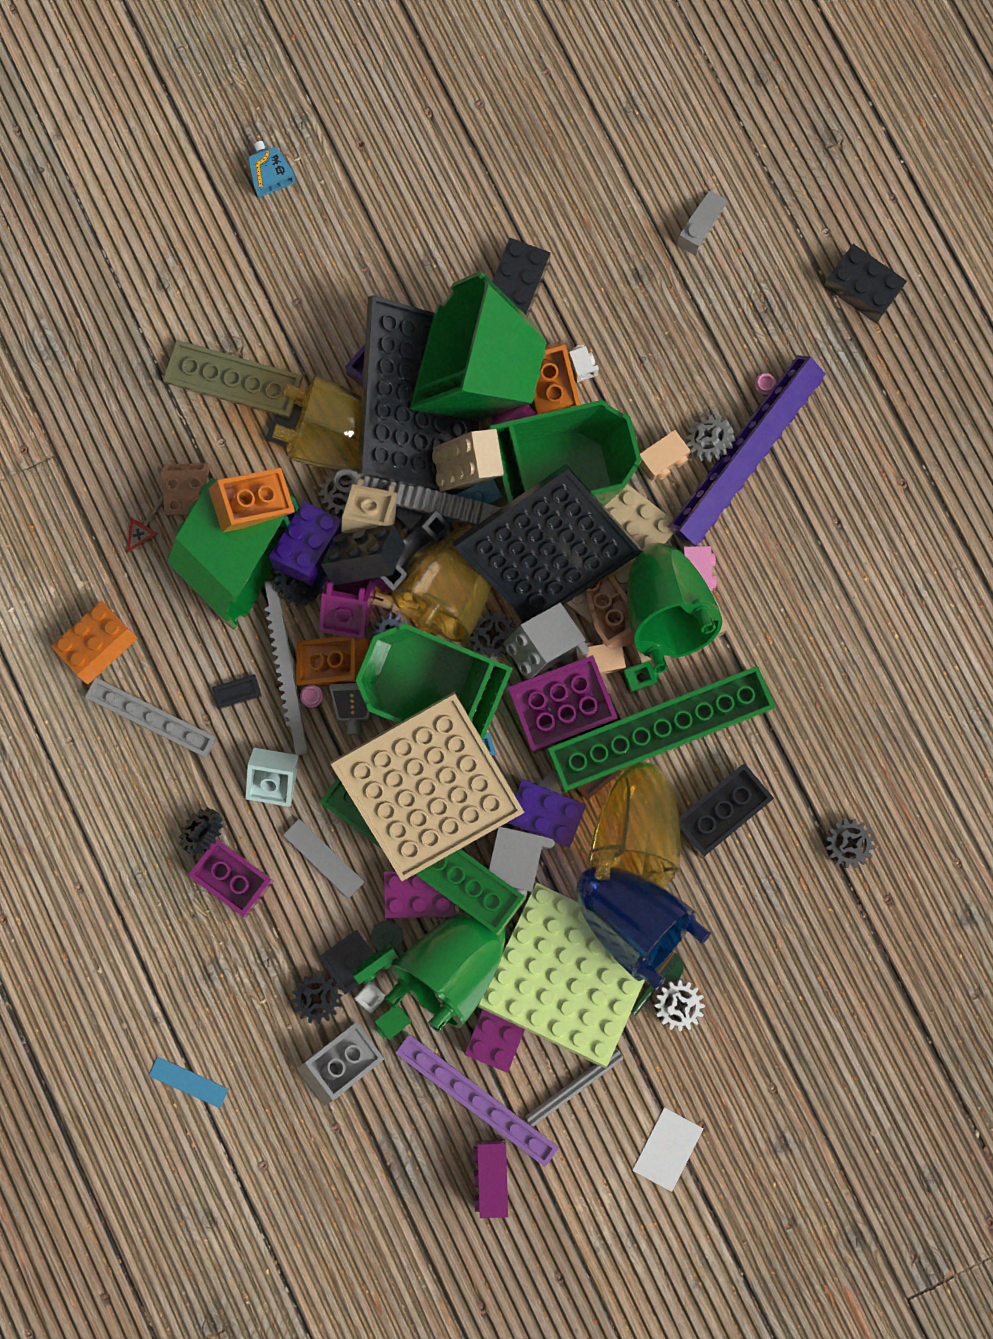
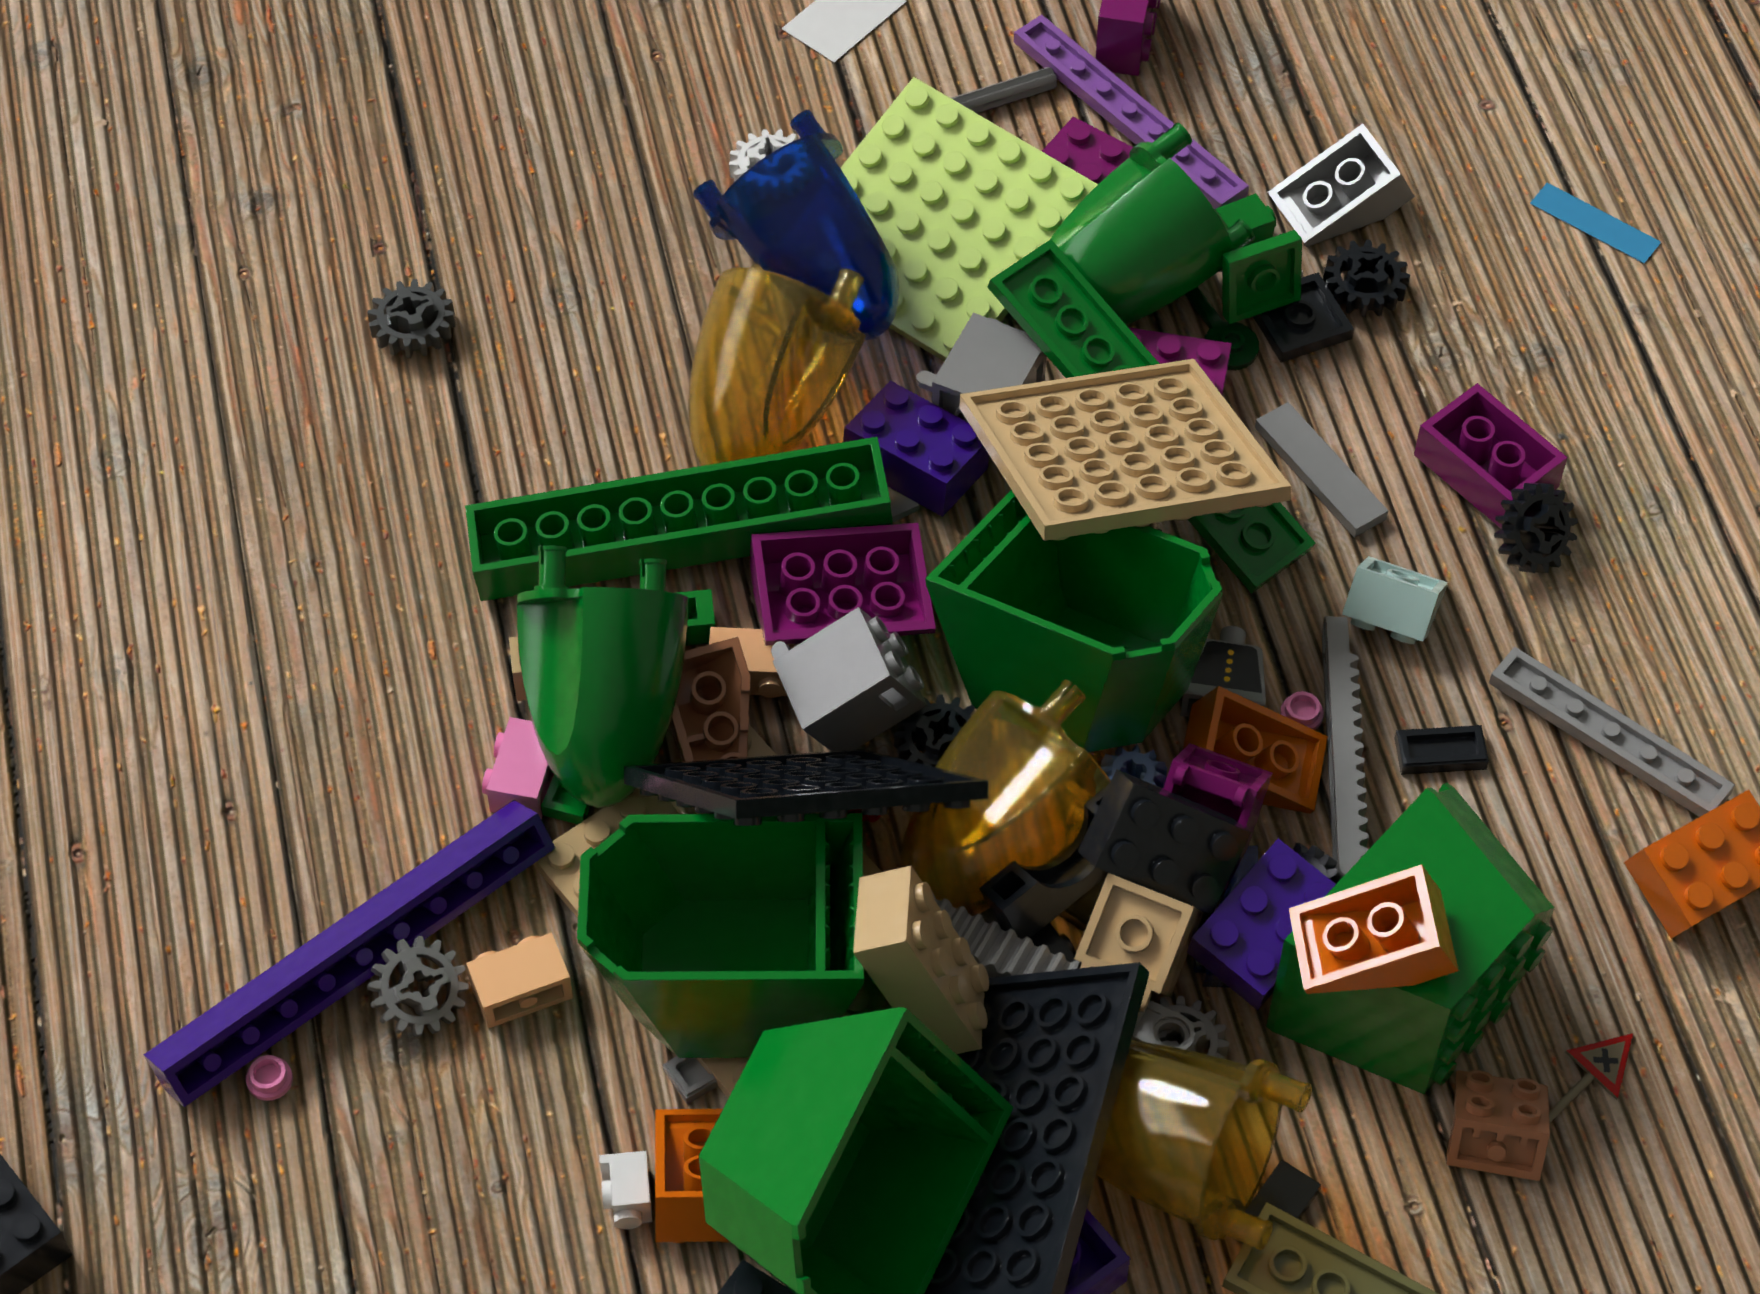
camera: 165 degrees left, 25 degrees down
(723, 810) = (607, 393): black brick -> none

